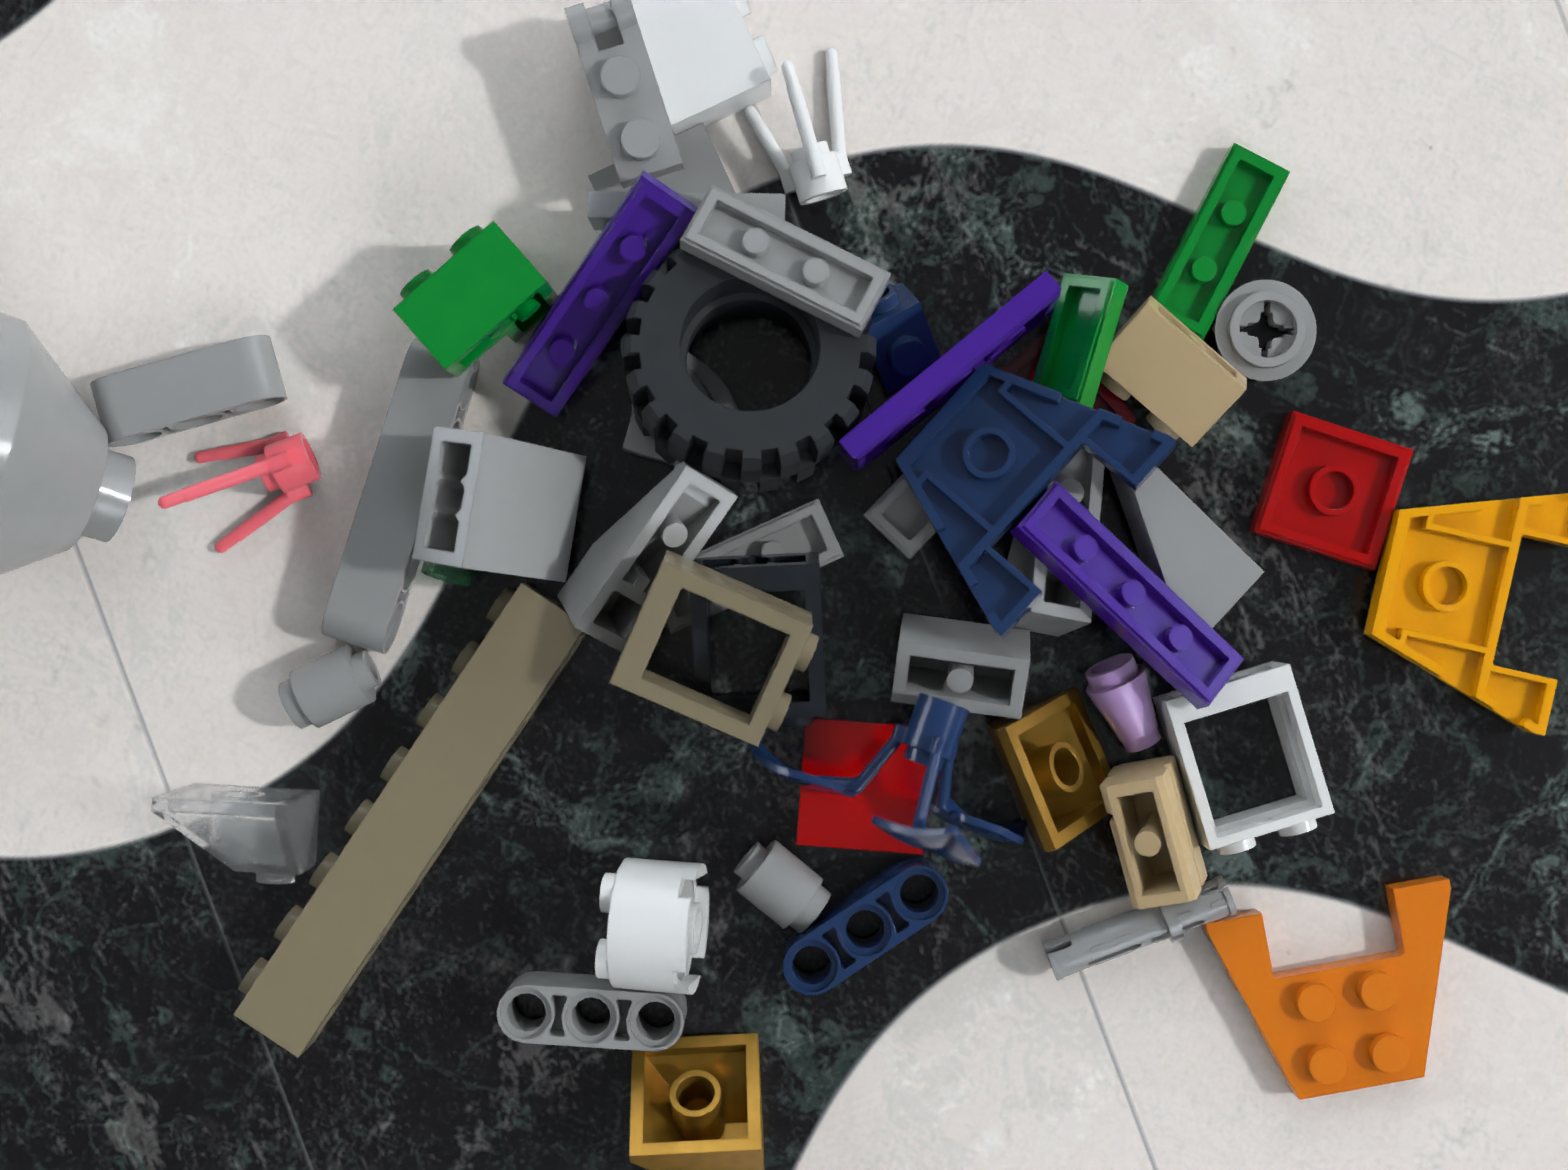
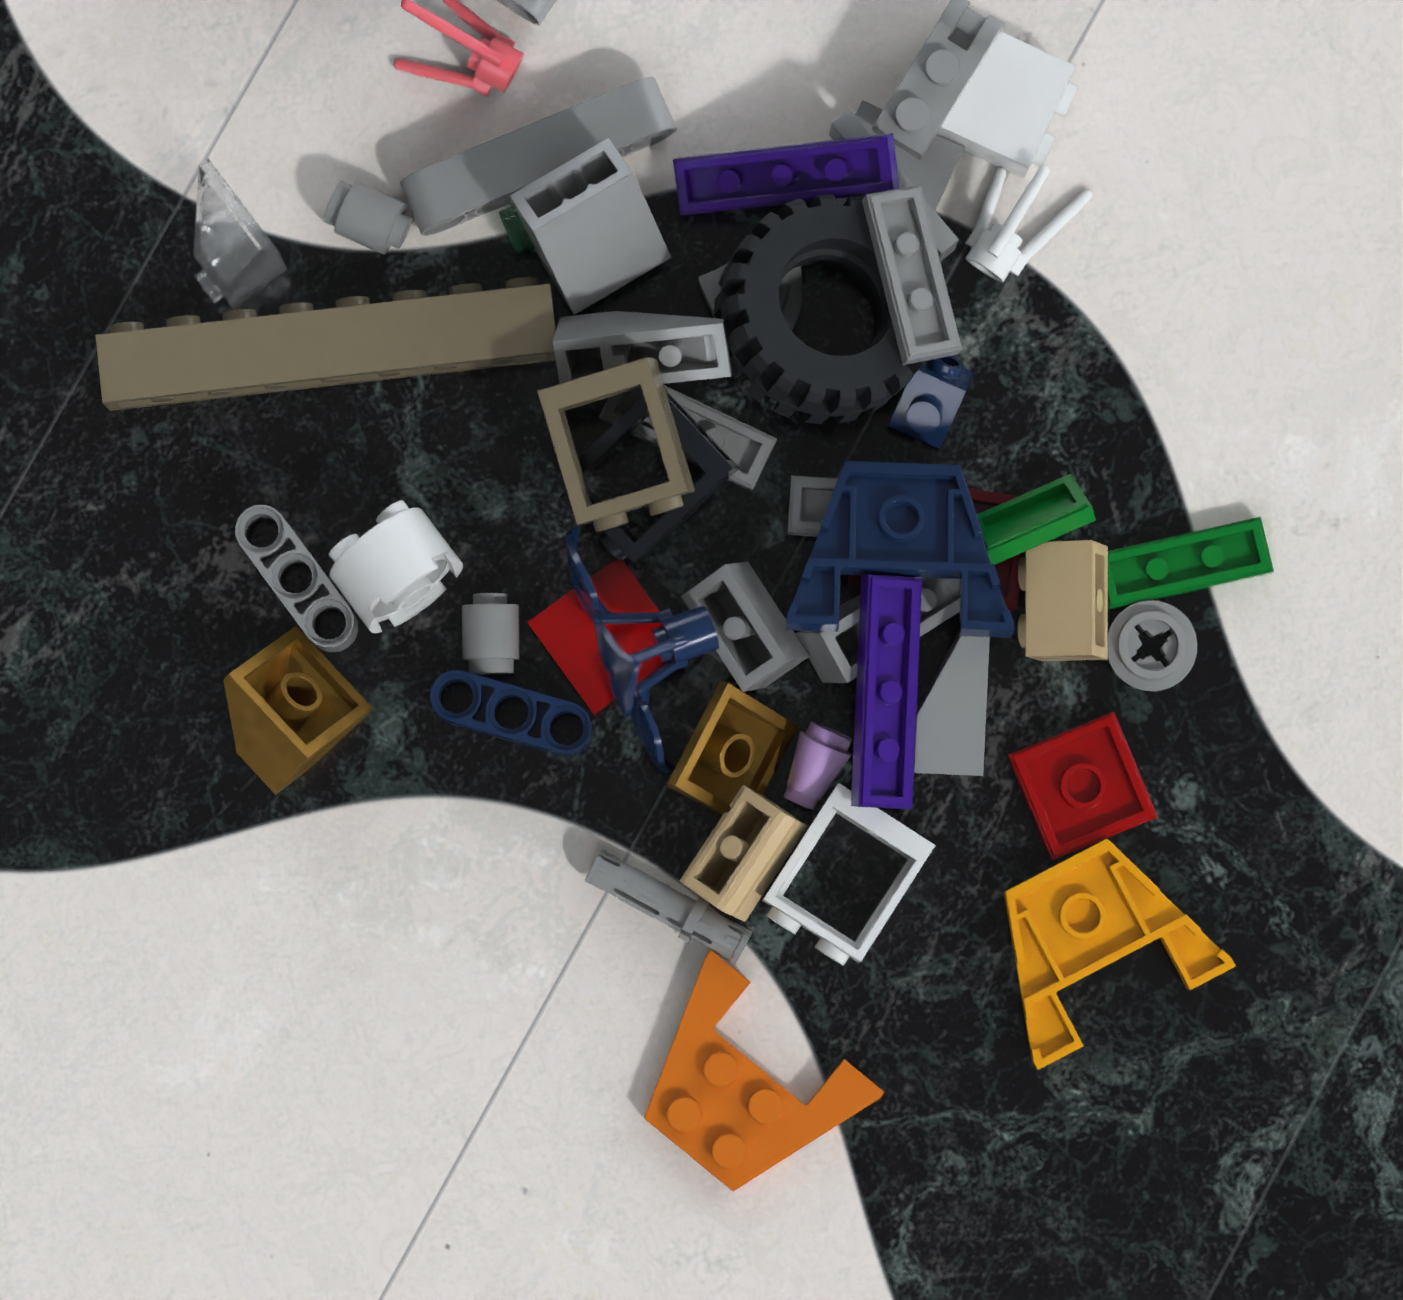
camera: 45 degrees right, 5 degrees down
(475, 299) = (714, 95): green brick -> none
(949, 373) = (898, 442): dark purple tile -> none

